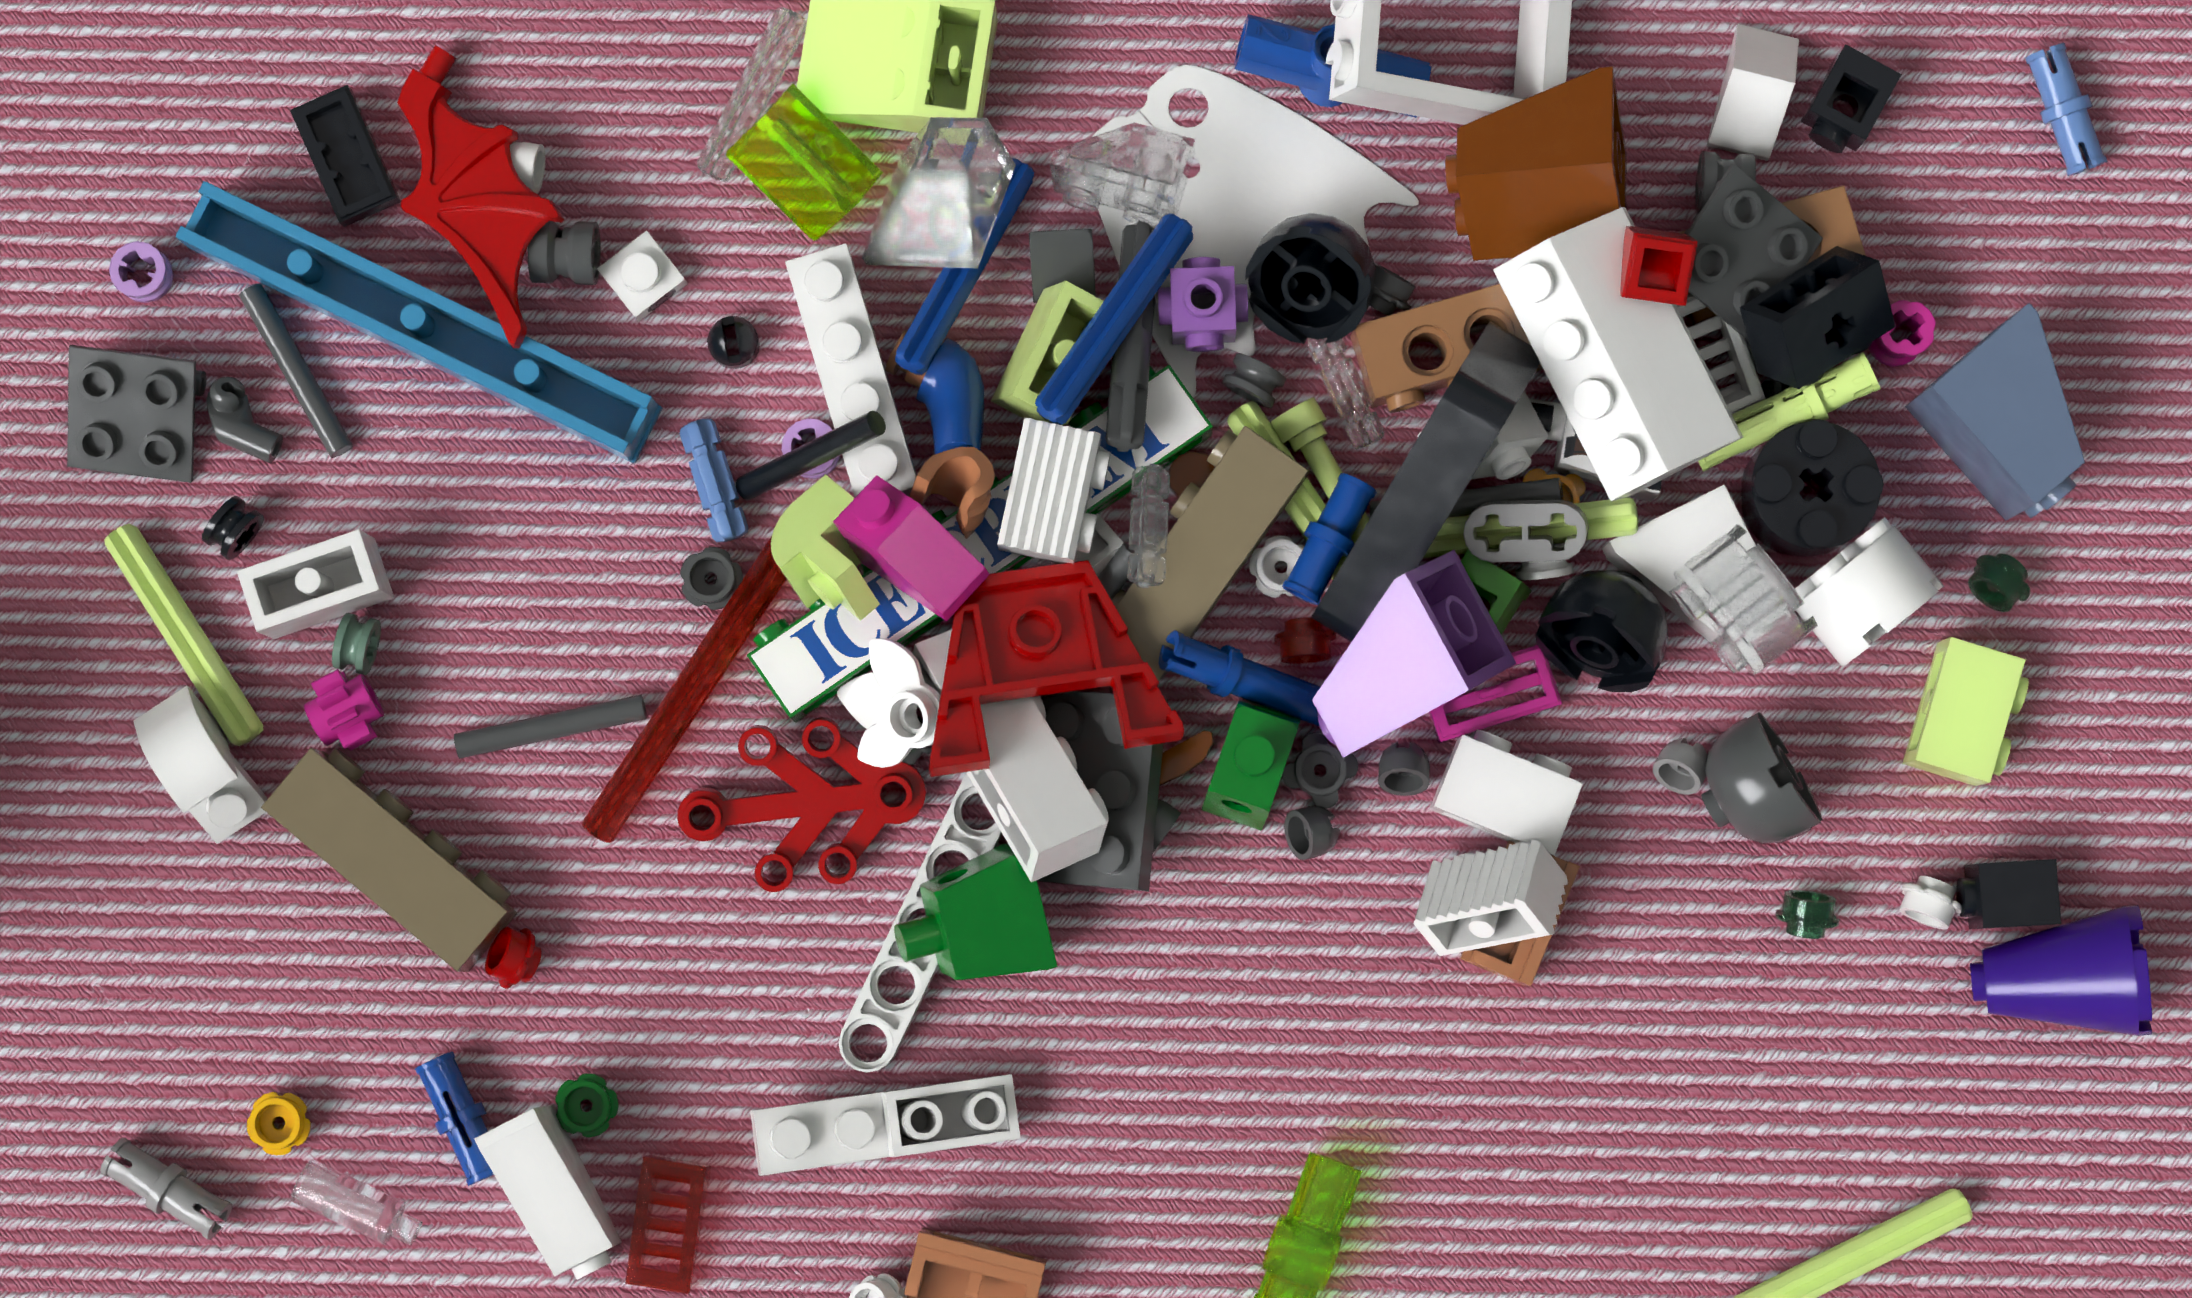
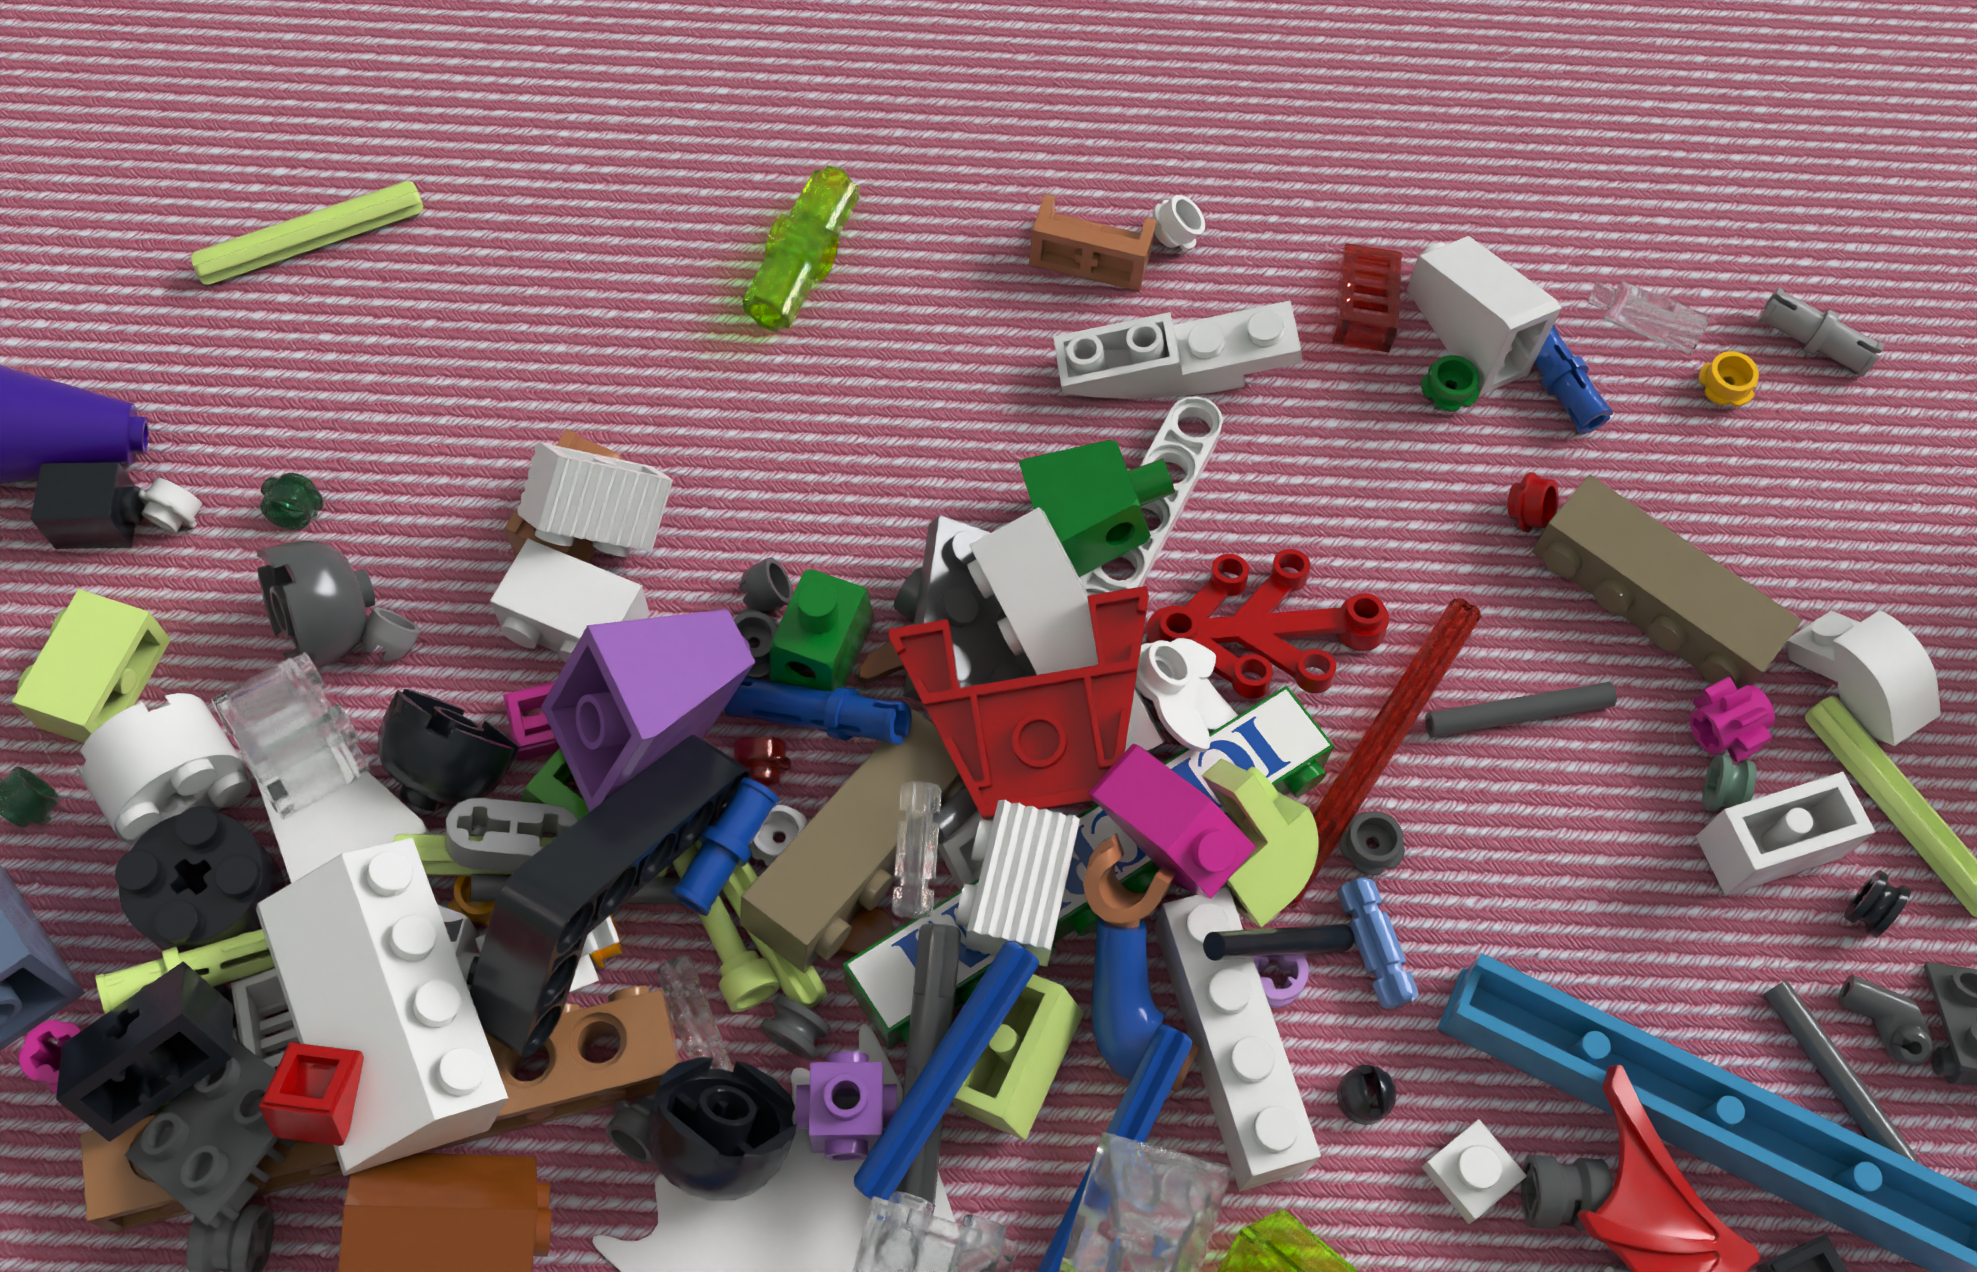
camera: 170 degrees right, 20 degrees down
(1062, 257) = (1003, 1170): dark grey slope -> none

